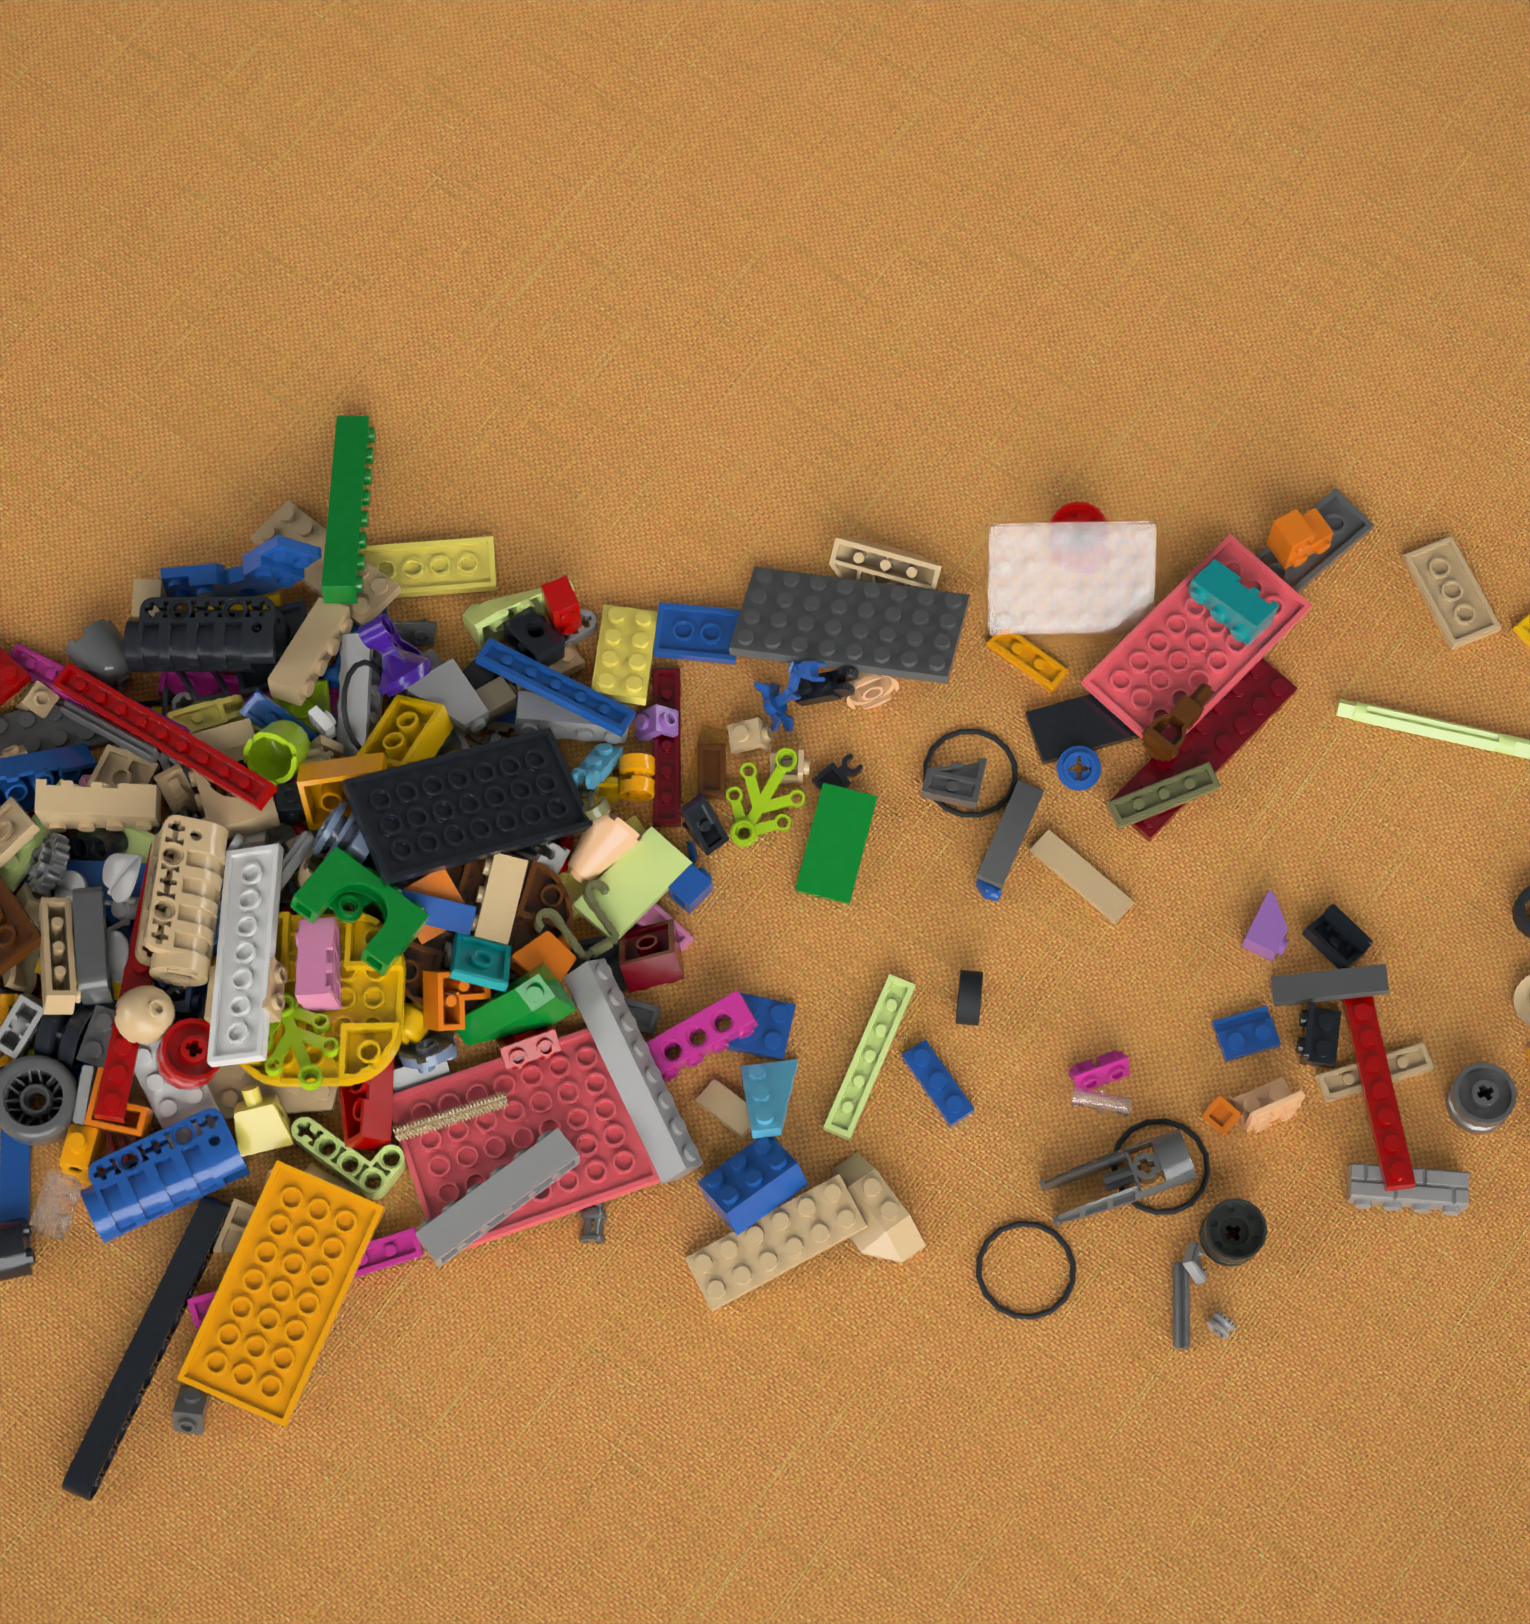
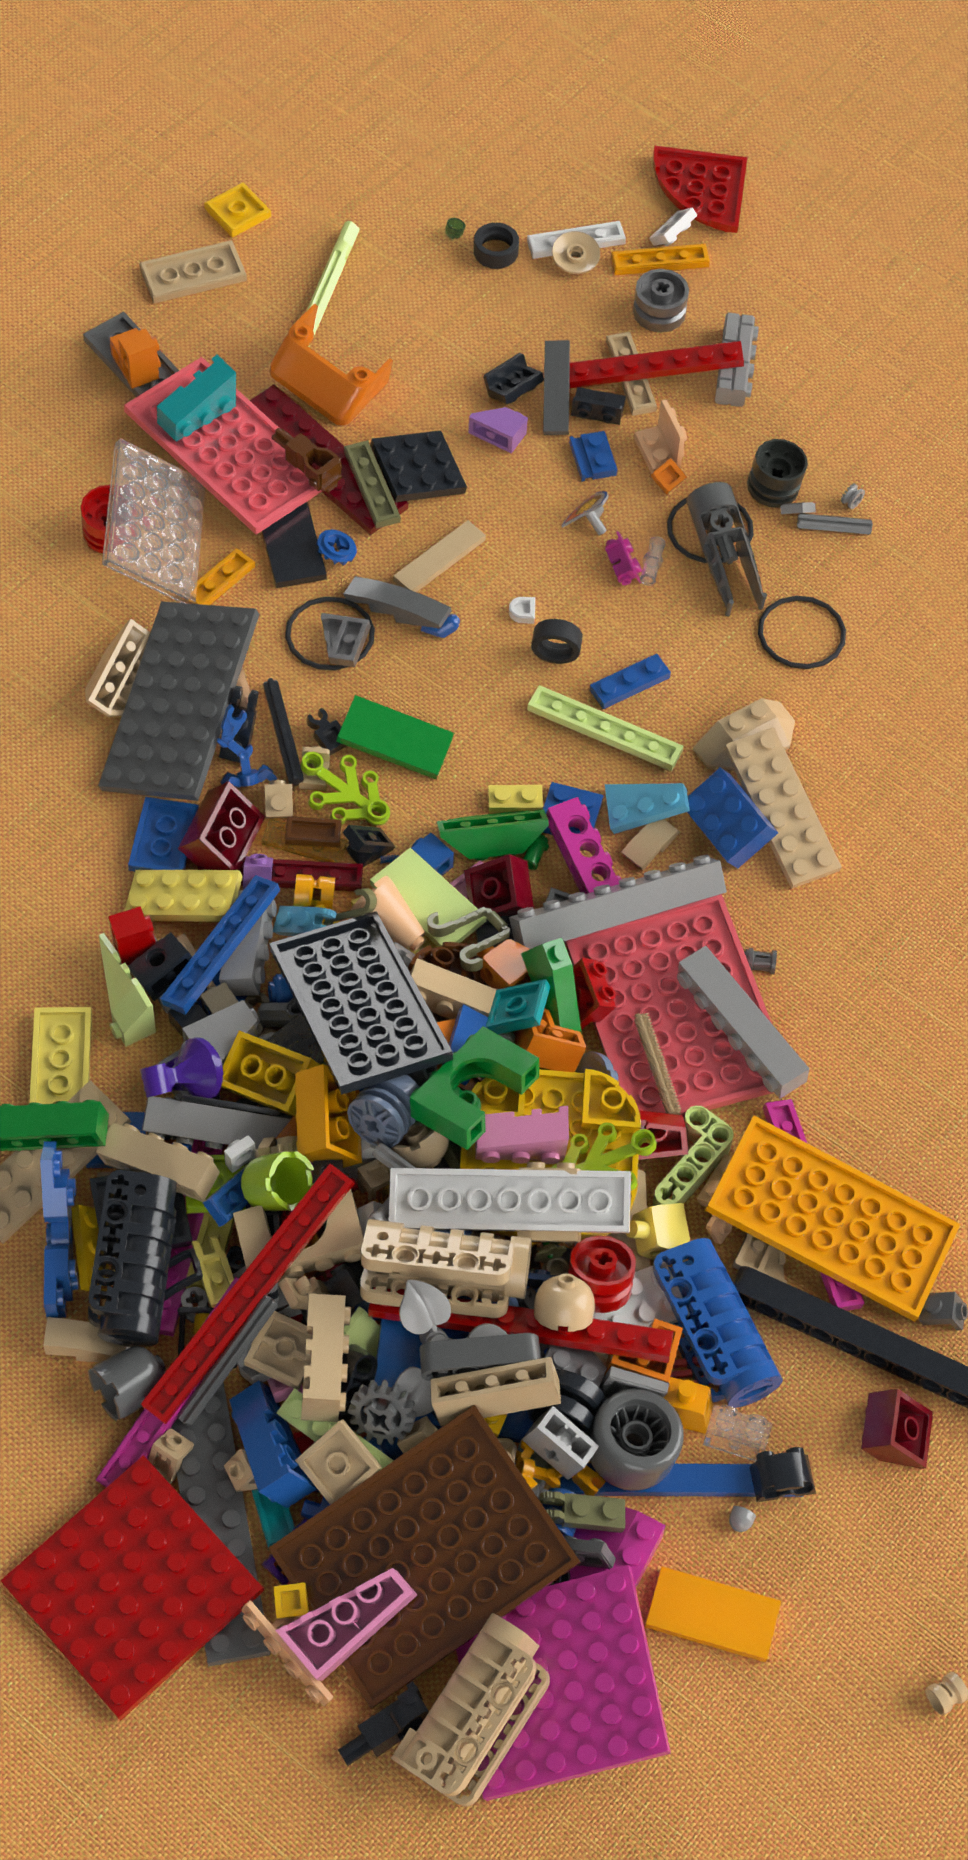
camera: 90 degrees left, 10 degrees down
(61, 1359) = (897, 1429): none -> dark red slope
(417, 631) = (132, 1090): dark grey hinge -> none
(702, 684) = (222, 829): none -> dark red slope
(707, 991) = (535, 852): none -> green pin
(723, 941) = (494, 833): none -> green wedge
(774, 970) = (514, 798): none -> light yellow plate
(835, 732) = (283, 732): none -> black axle
(1022, 967) = (522, 610): none -> white tile
(1159, 1029) = (592, 509): none -> light grey shield
(1200, 844) = (418, 466): none -> black plate
(1279, 755) = (318, 381): none -> orange windscreen

